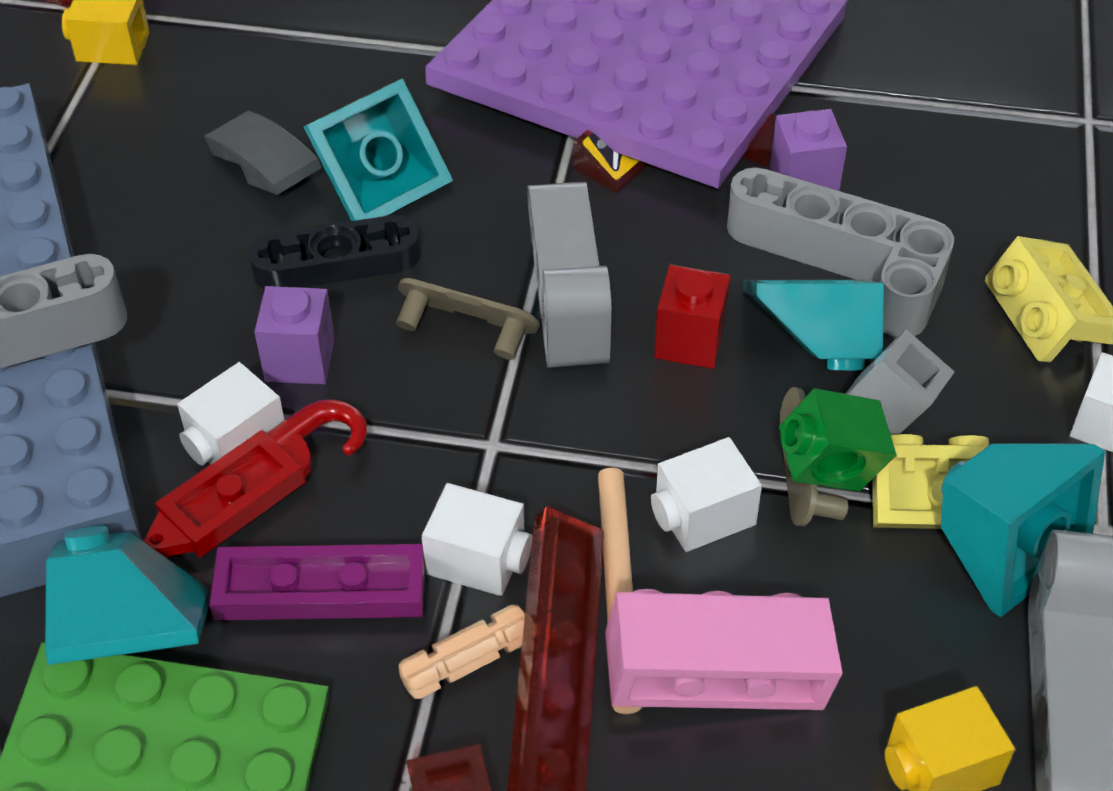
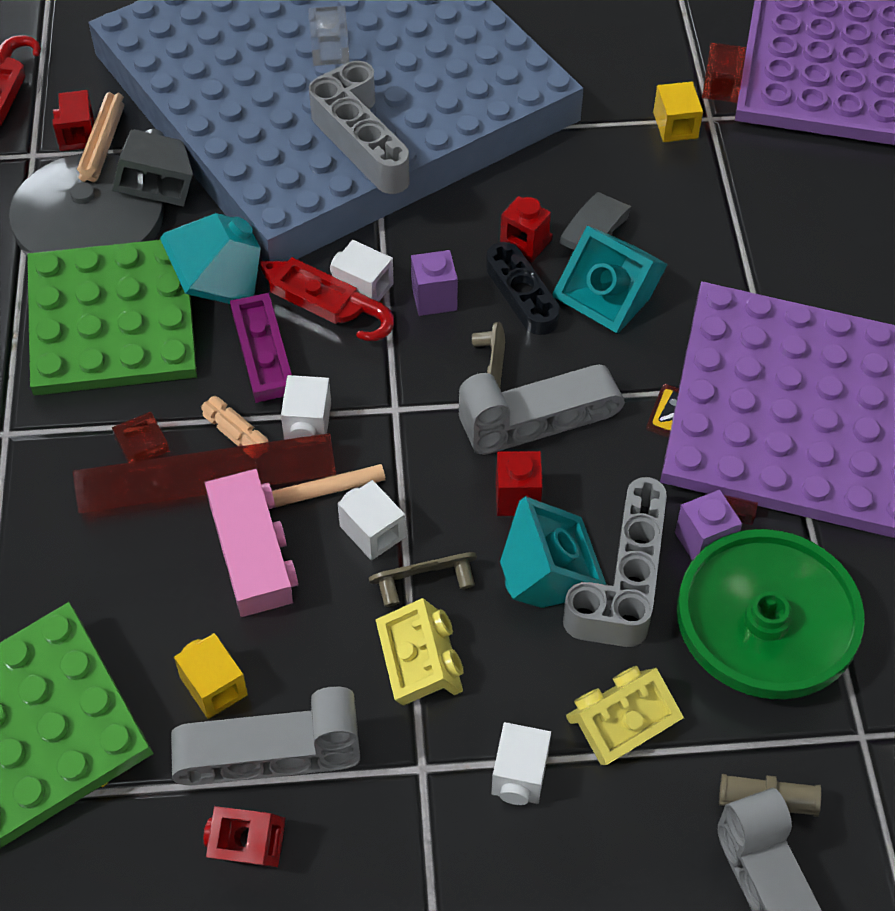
camera: 75 degrees right, 5 degrees up
(233, 201) = (527, 217): none -> red brick
(836, 440) = (413, 568): green brick -> none
(904, 380) = (482, 607): light grey brick -> none
(947, 131) = (770, 614): none -> green dish
(1007, 504) = (383, 681): teal slope -> none

